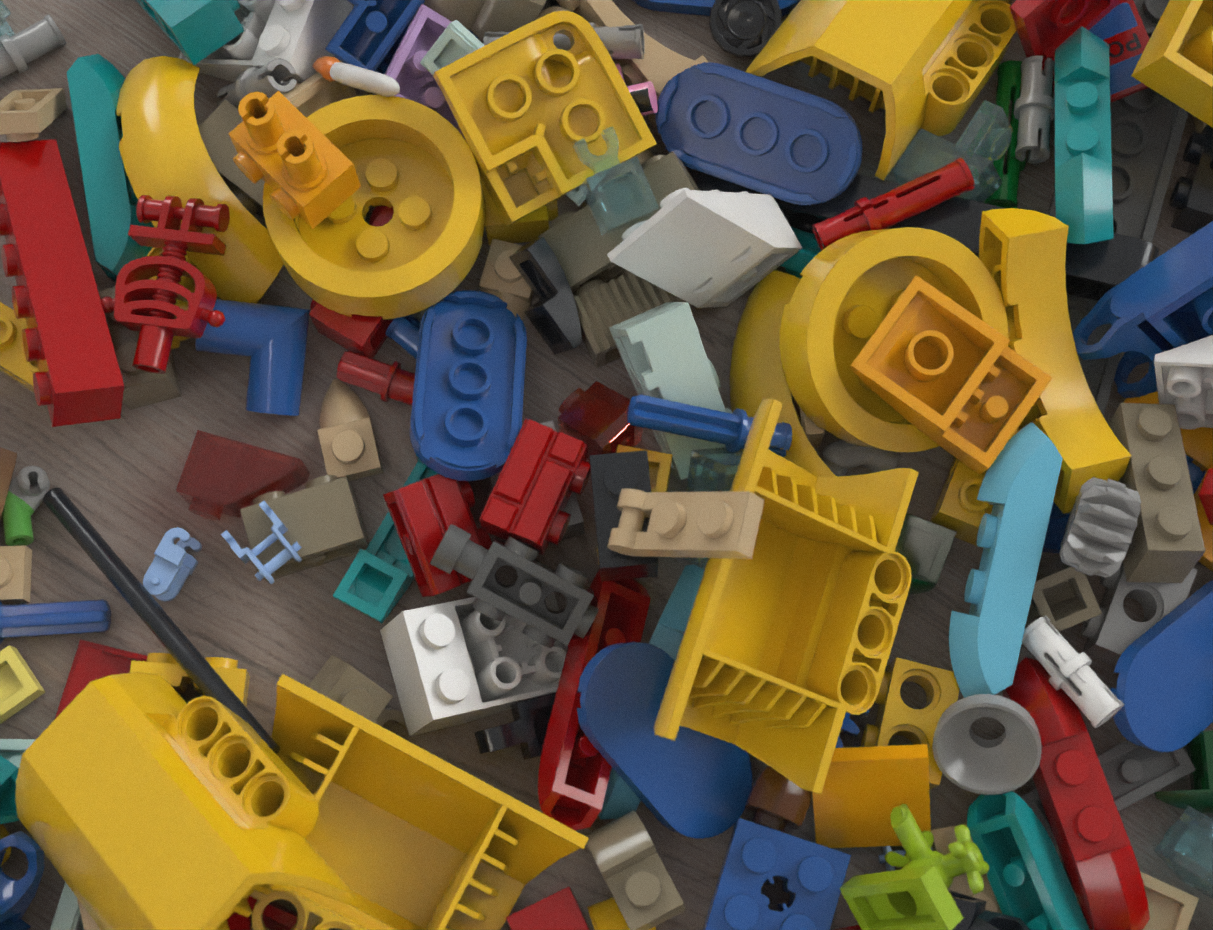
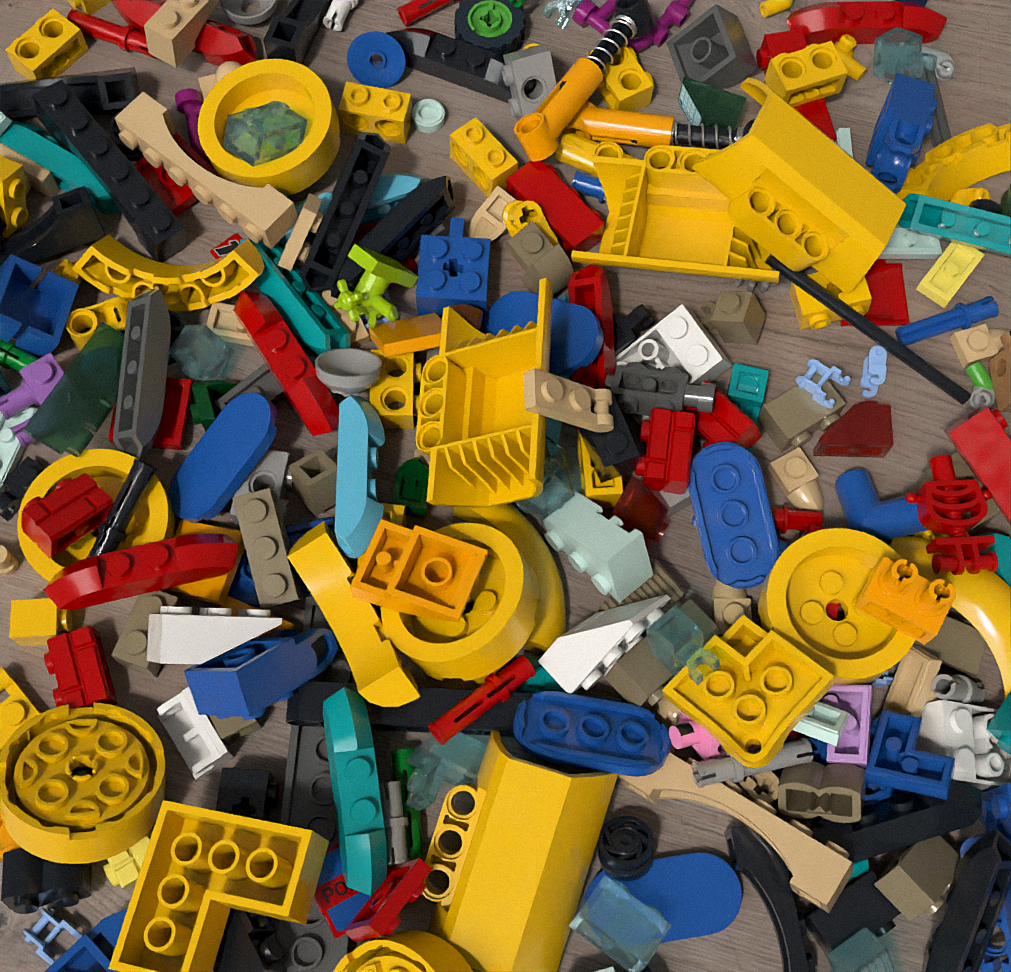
camera: 160 degrees right, 5 degrees down
(357, 77) = (890, 695): white piece -> none
(556, 311) = (699, 589): black slope -> none
(702, 423) = (568, 510): blue axle -> none
(1071, 672) = (304, 420): white pin -> none
(1100, 527) = (301, 501): light grey gear -> none

